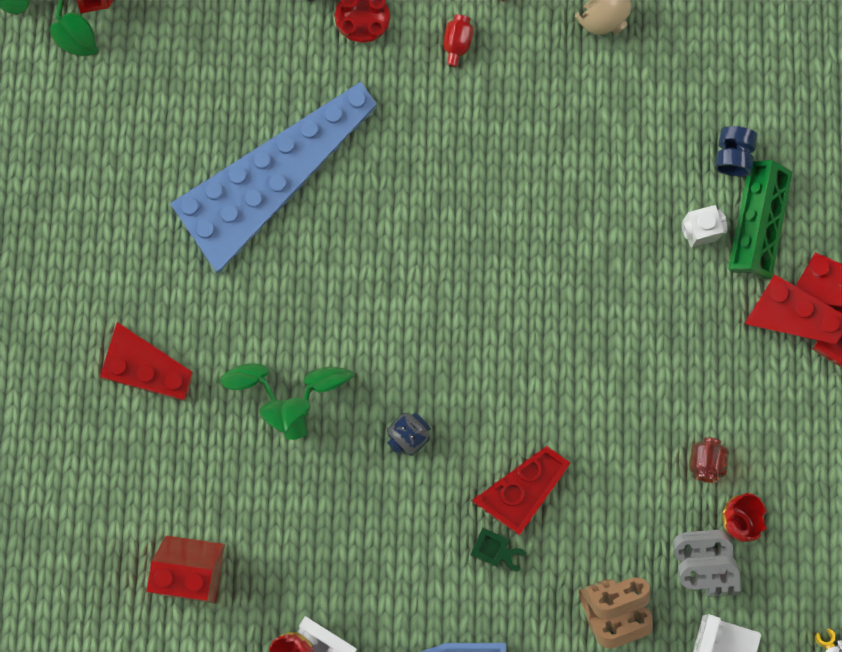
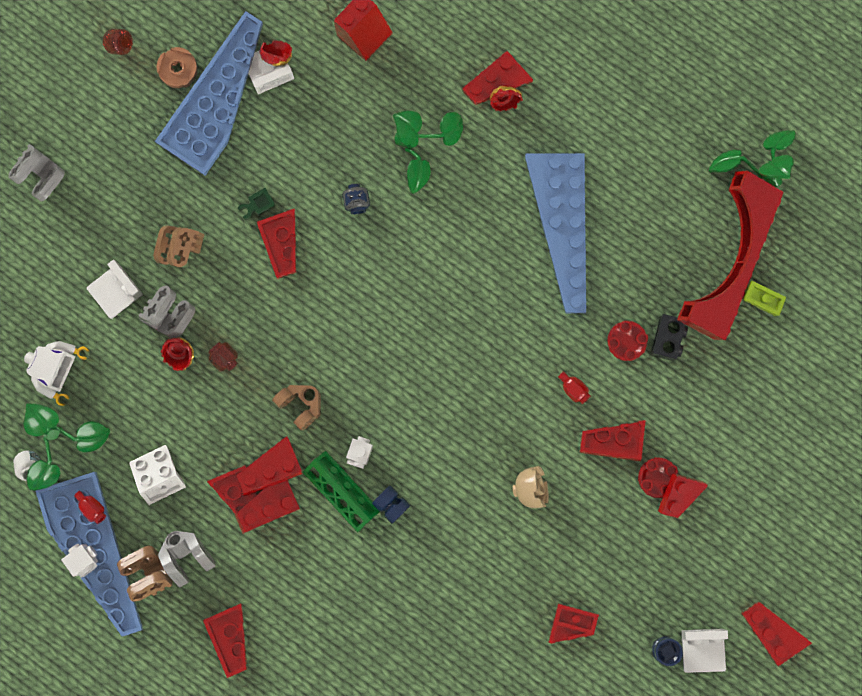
camera: 130 degrees right, 5 degrees up
(162, 338) = (505, 98): none -> red hair
(704, 351) = (306, 418): none -> medium nougat piece

